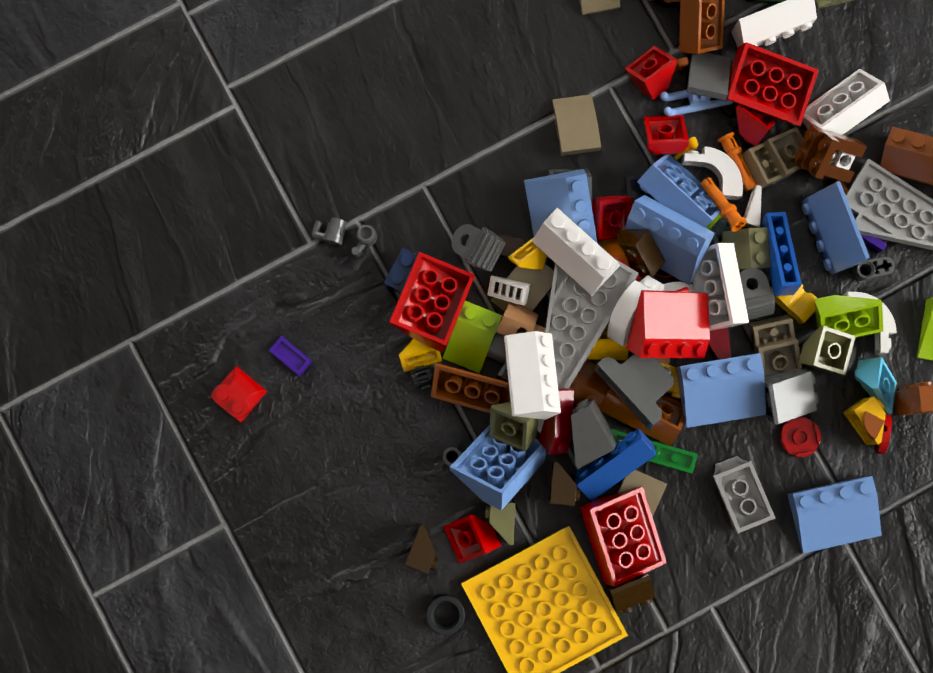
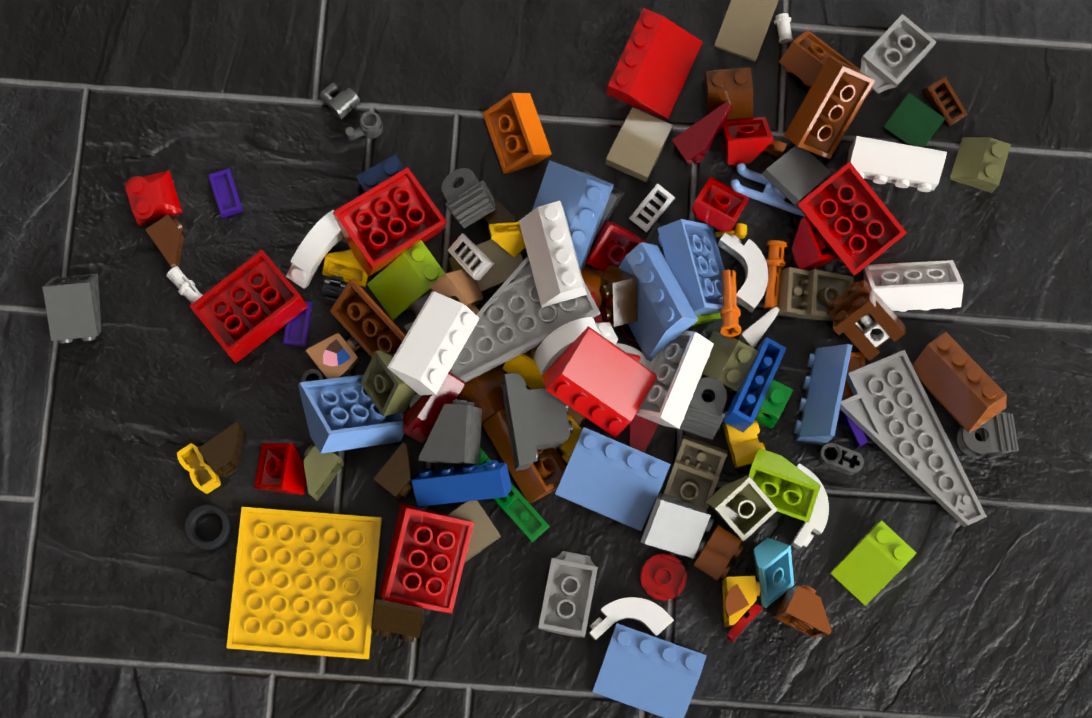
camera: 30 degrees right, 5 degrees down
(235, 515) = (73, 307): none -> dark grey slope
(272, 418) = (168, 238): none -> reddish brown slope
(309, 446) = (185, 286): none -> white pin
(366, 431) = (249, 306): none -> red slope
(388, 357) = (313, 249): none -> white arch
(410, 420) = (298, 328): none -> dark purple tile
(415, 578) = (200, 471): none -> yellow brick
(456, 428) = (335, 356): none -> medium nougat torso
(479, 173) = (516, 132): none -> orange slope
(548, 57) = (654, 65): none -> red slope
(609, 166) = (669, 199): none -> white slope
(618, 45) = (730, 86): none -> reddish brown slope
(618, 94) = (699, 137): none -> dark red slope
(791, 476) = (639, 609): none -> white arch
(804, 257) = (773, 404): none -> green torso
(830, 395) = (717, 553): none -> dark orange brick

